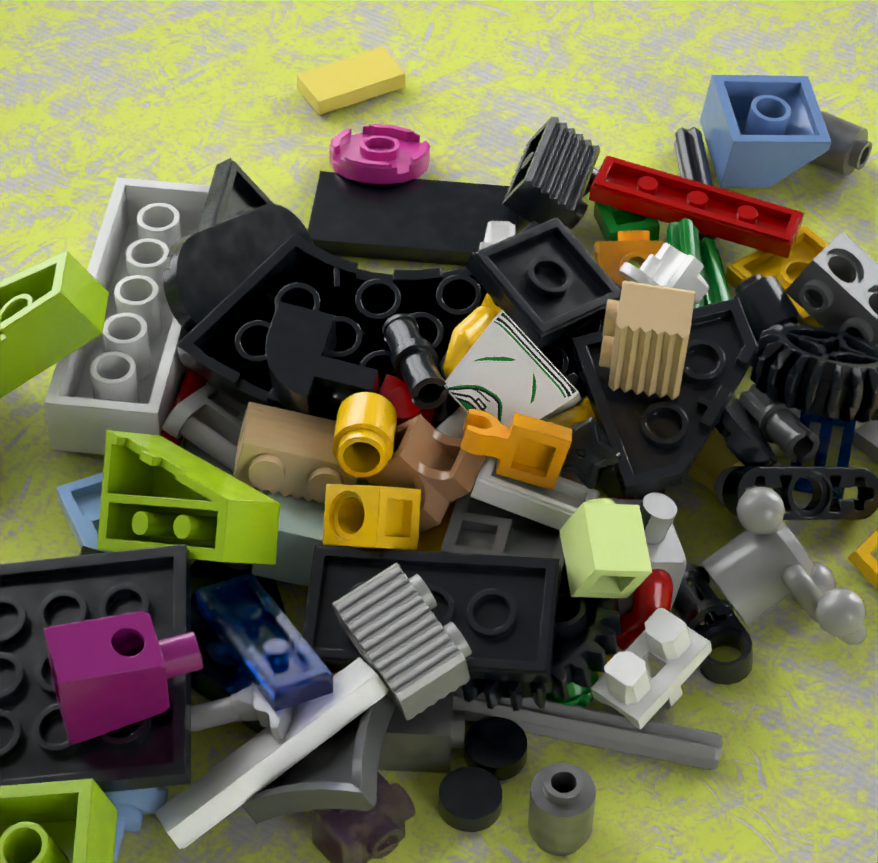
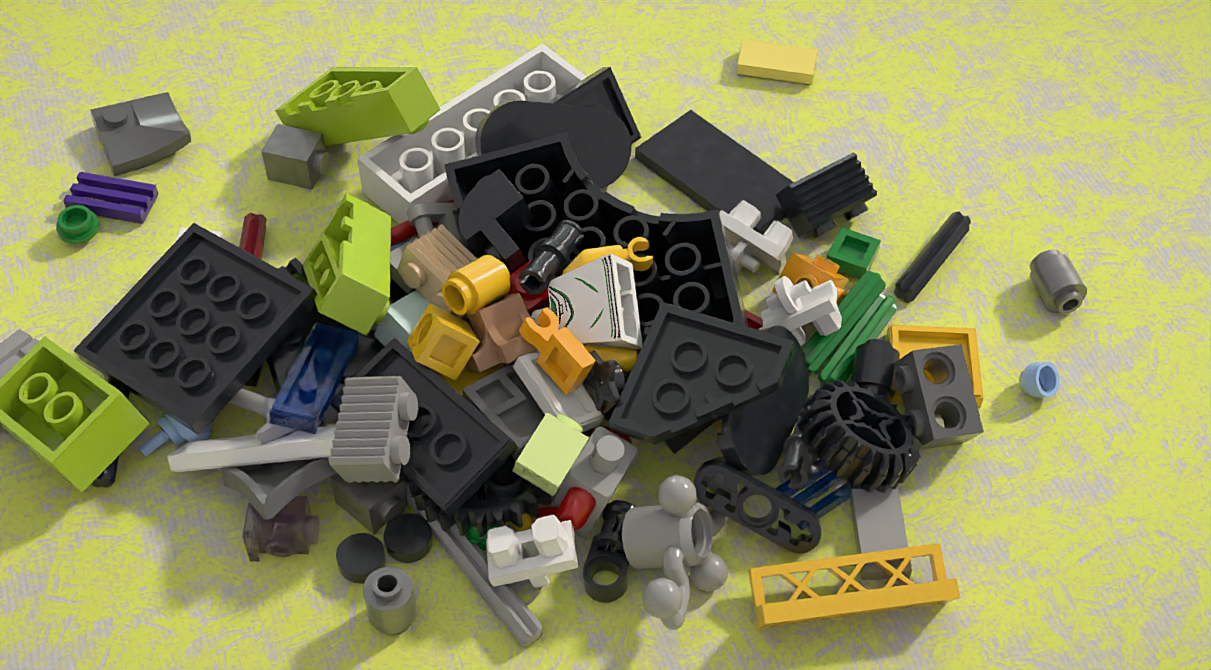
camera: 40 degrees right, 5 degrees up
(114, 671) = (187, 336): magenta torso -> none
(379, 154) = (738, 120): dark pink tile -> none
(544, 281) = (679, 255): black tile -> none
(647, 338) = (684, 329): tan brick -> none
(710, 208) = (903, 271): red tile -> none
(761, 128) = (1007, 241): medium blue slope -> none

